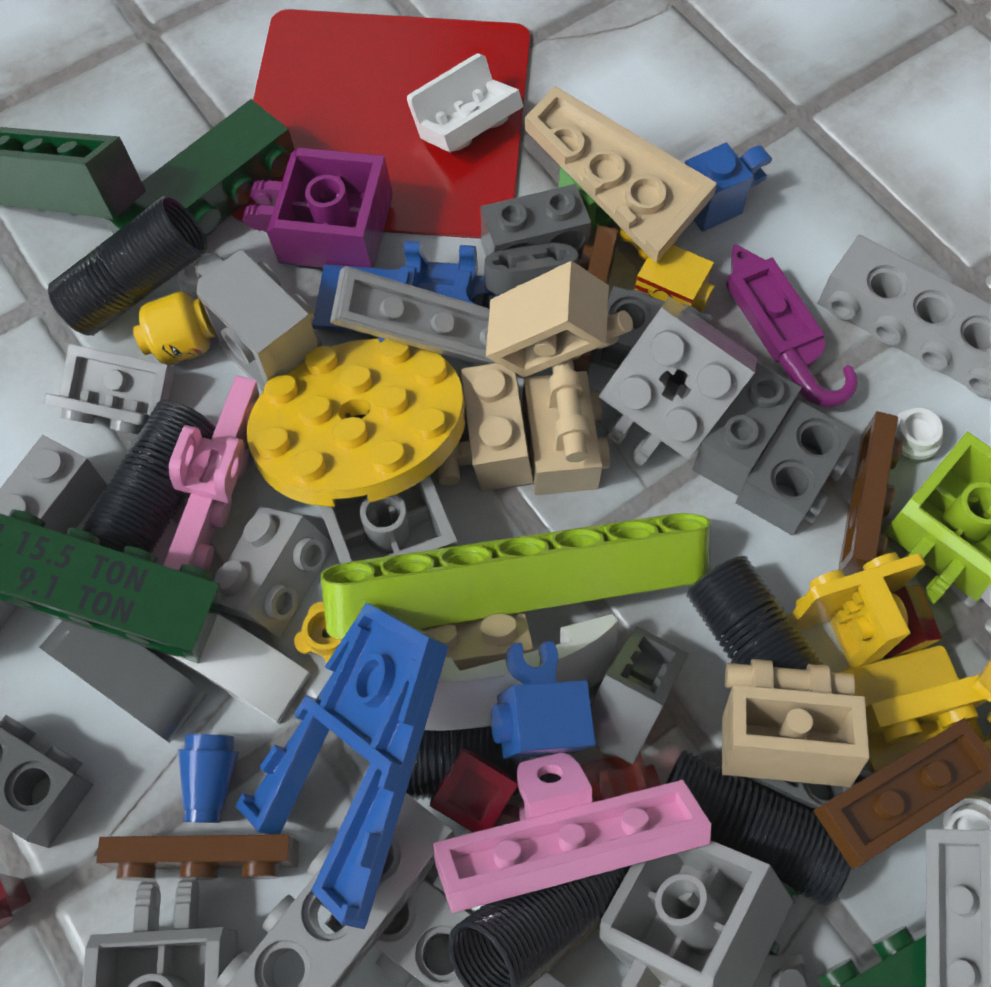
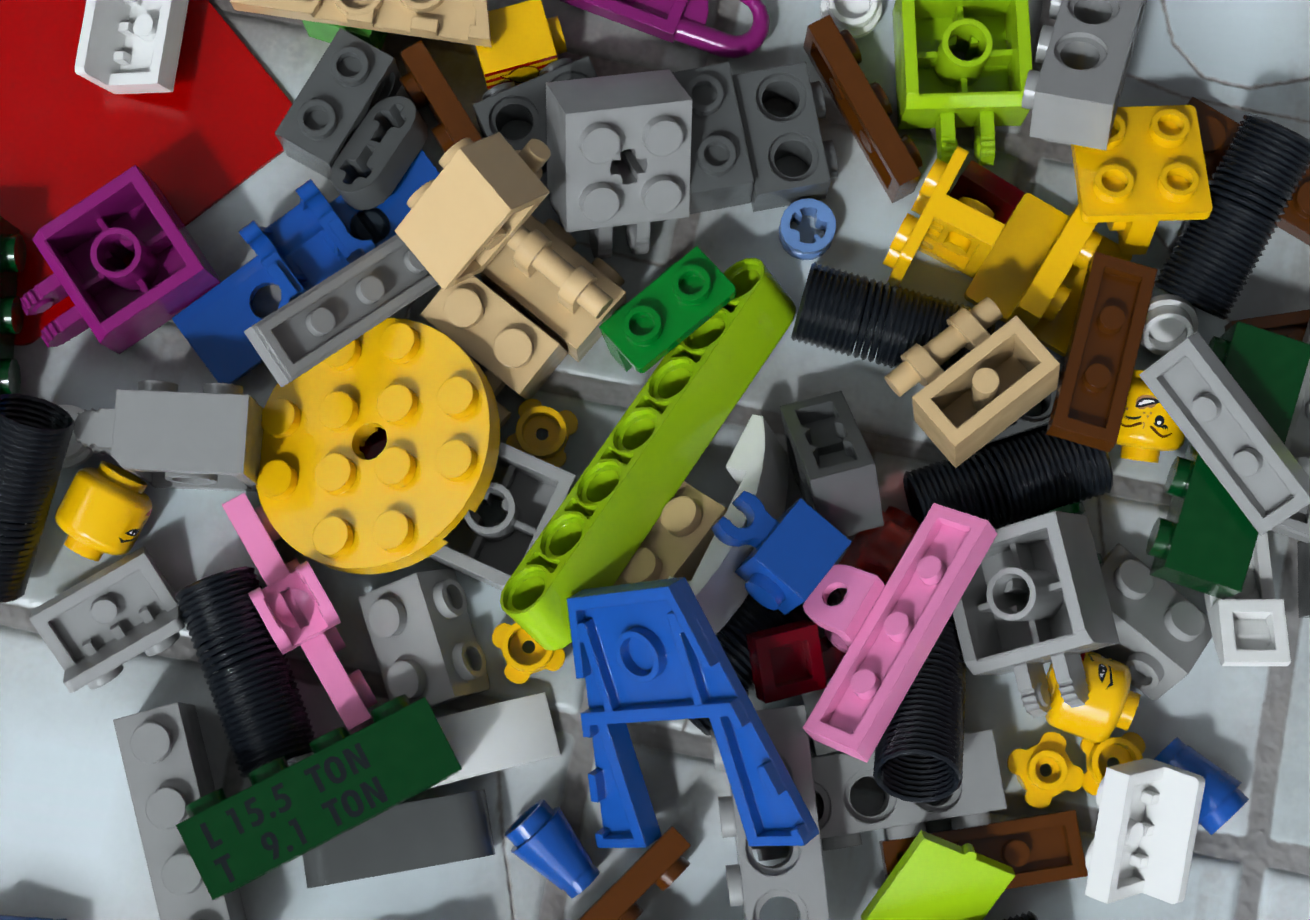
camera: 45 degrees left, 15 degrees up
(470, 498) = (536, 417): none -> yellow plate
(617, 499) = (667, 311): none -> green bracket
(762, 523) = (823, 220): none -> medium blue bush
(897, 880) = (1146, 425): none -> yellow head

